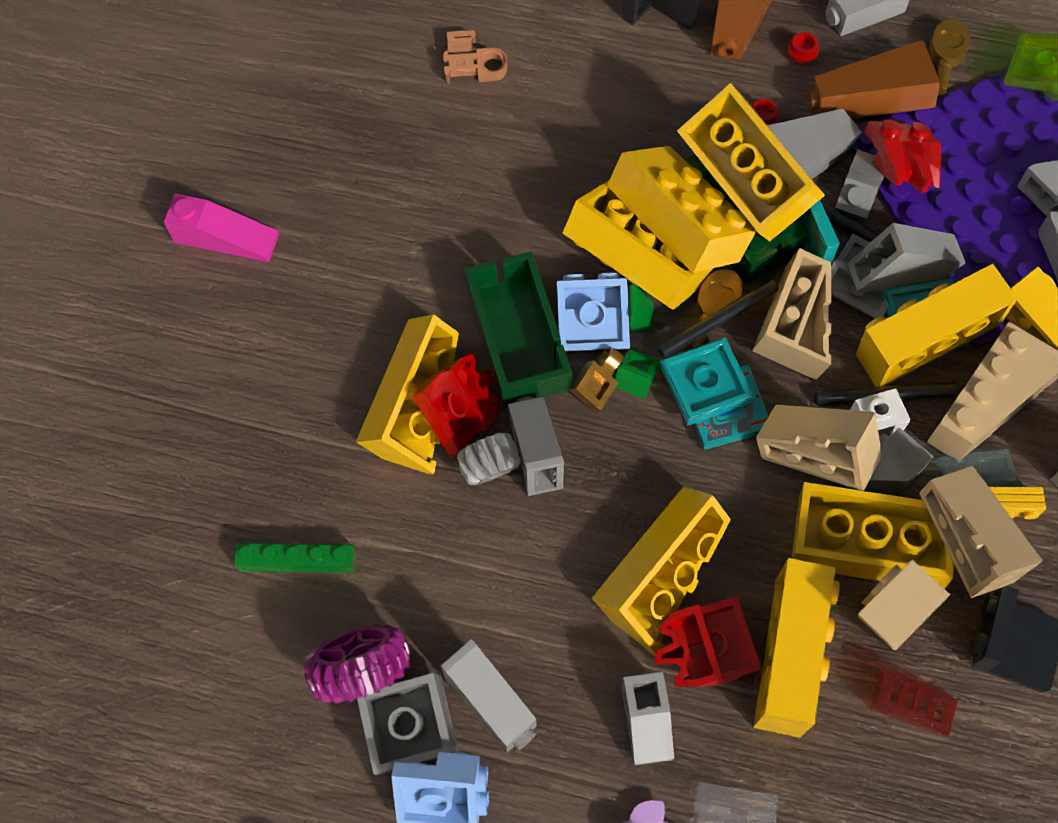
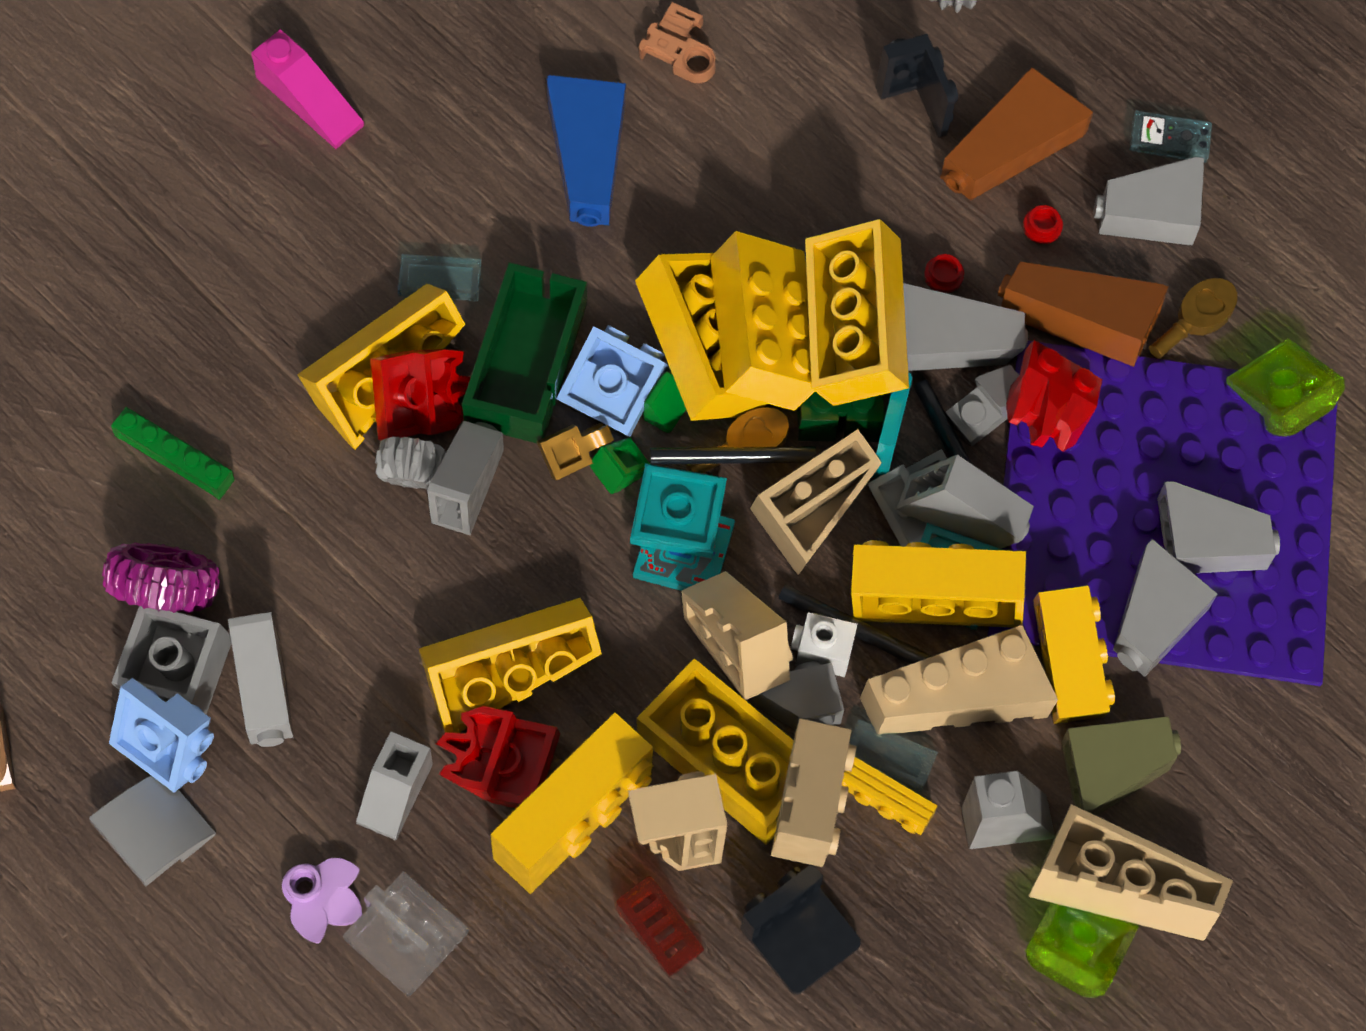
camera: 25 degrees right, 0 degrees up
(421, 302) = (455, 275): none -> clear light blue tile
(454, 157) = (587, 140): none -> blue slope

